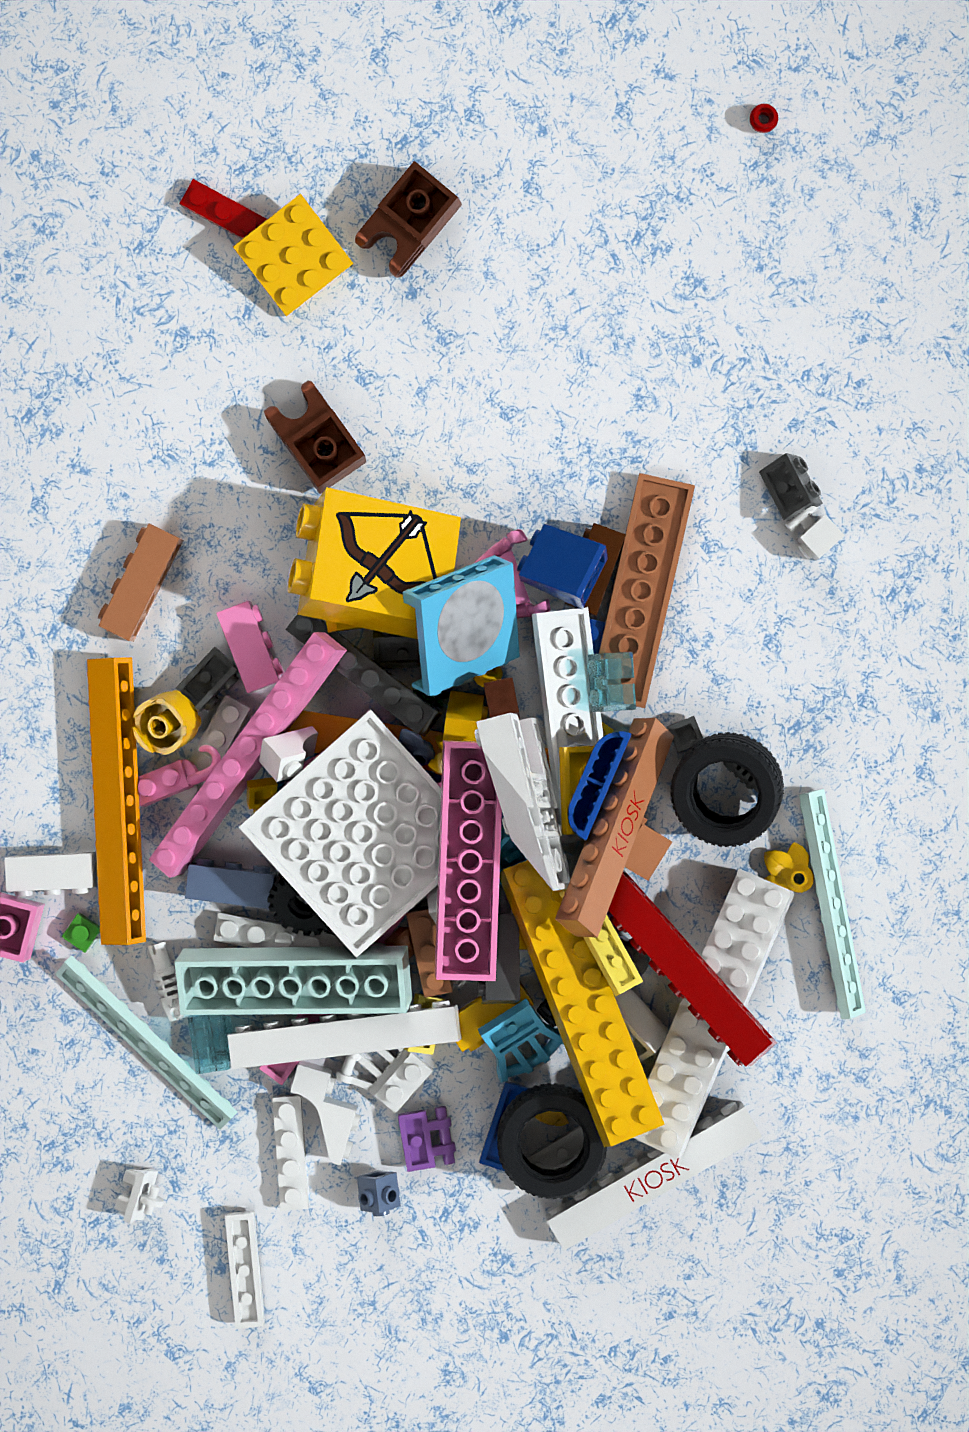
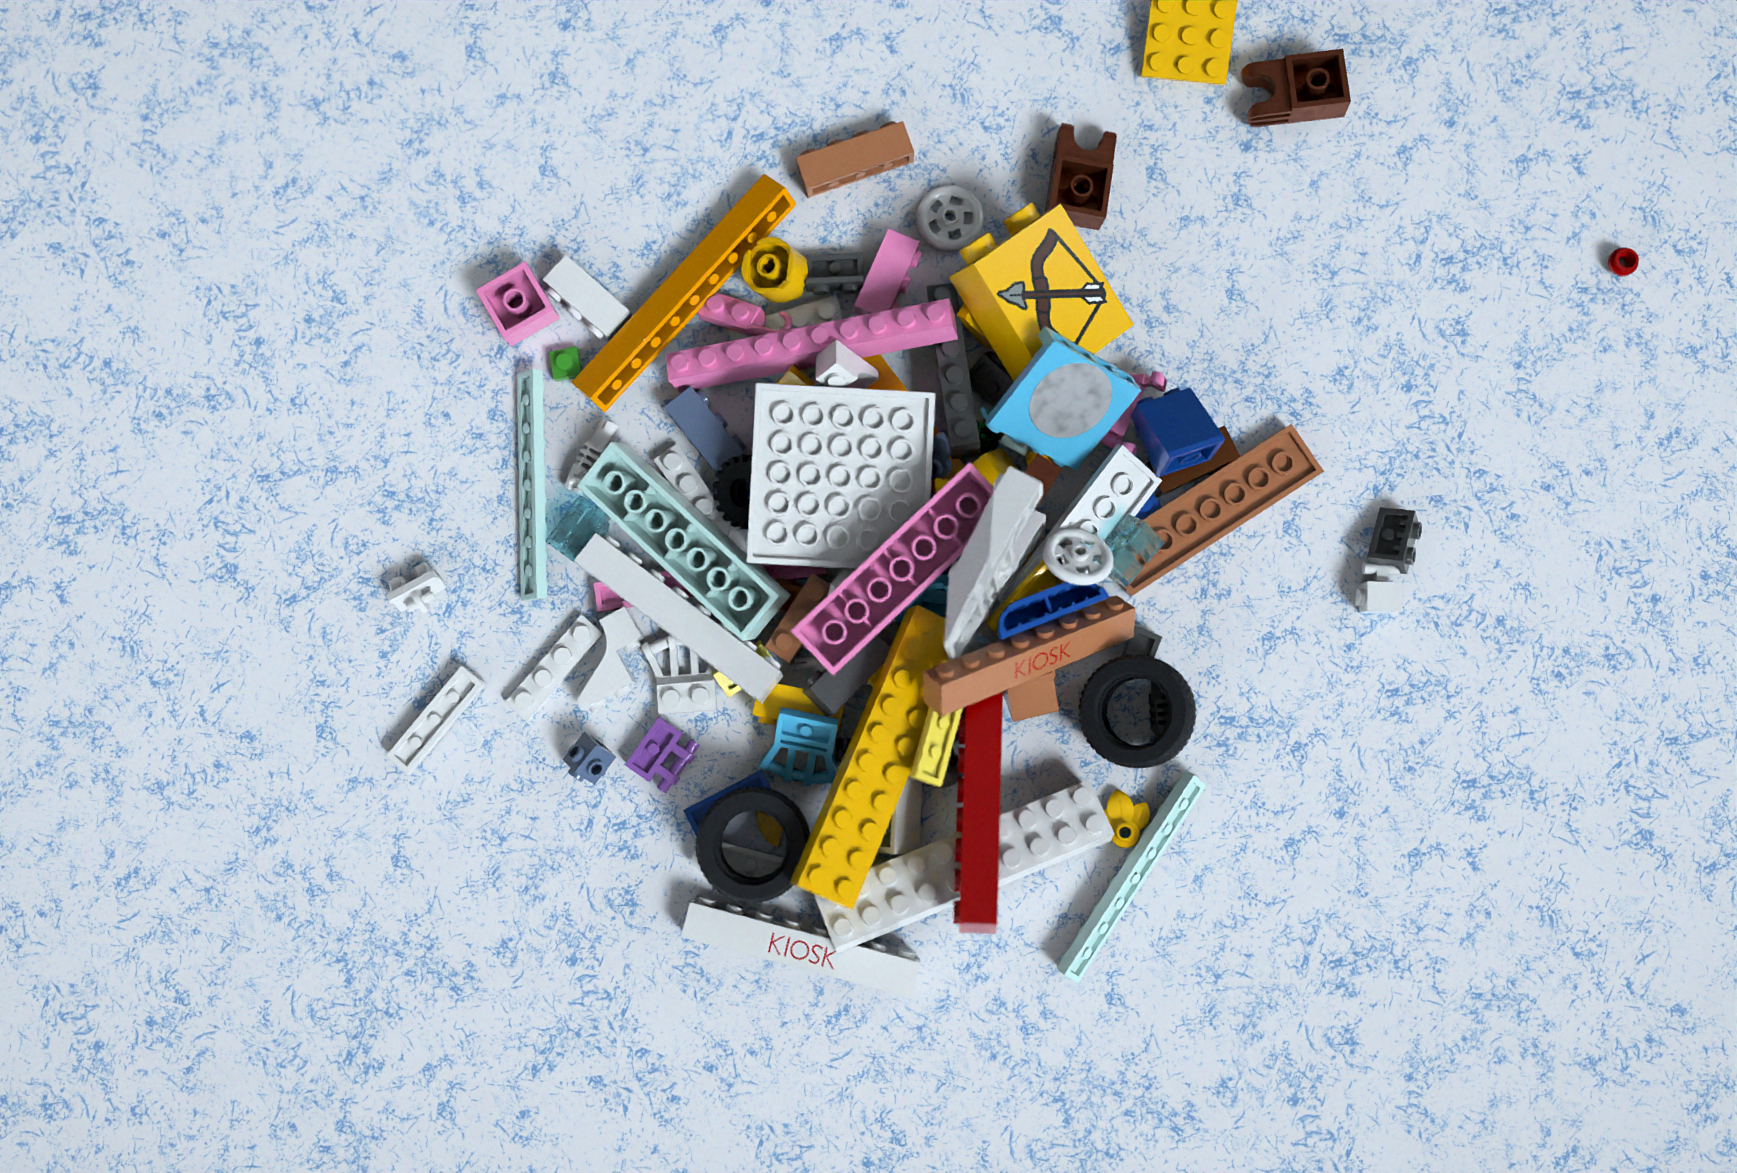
camera: 50 degrees right, 5 degrees down
(232, 573) = (941, 239): none -> white plate
(585, 746) = (1078, 557): none -> white plate

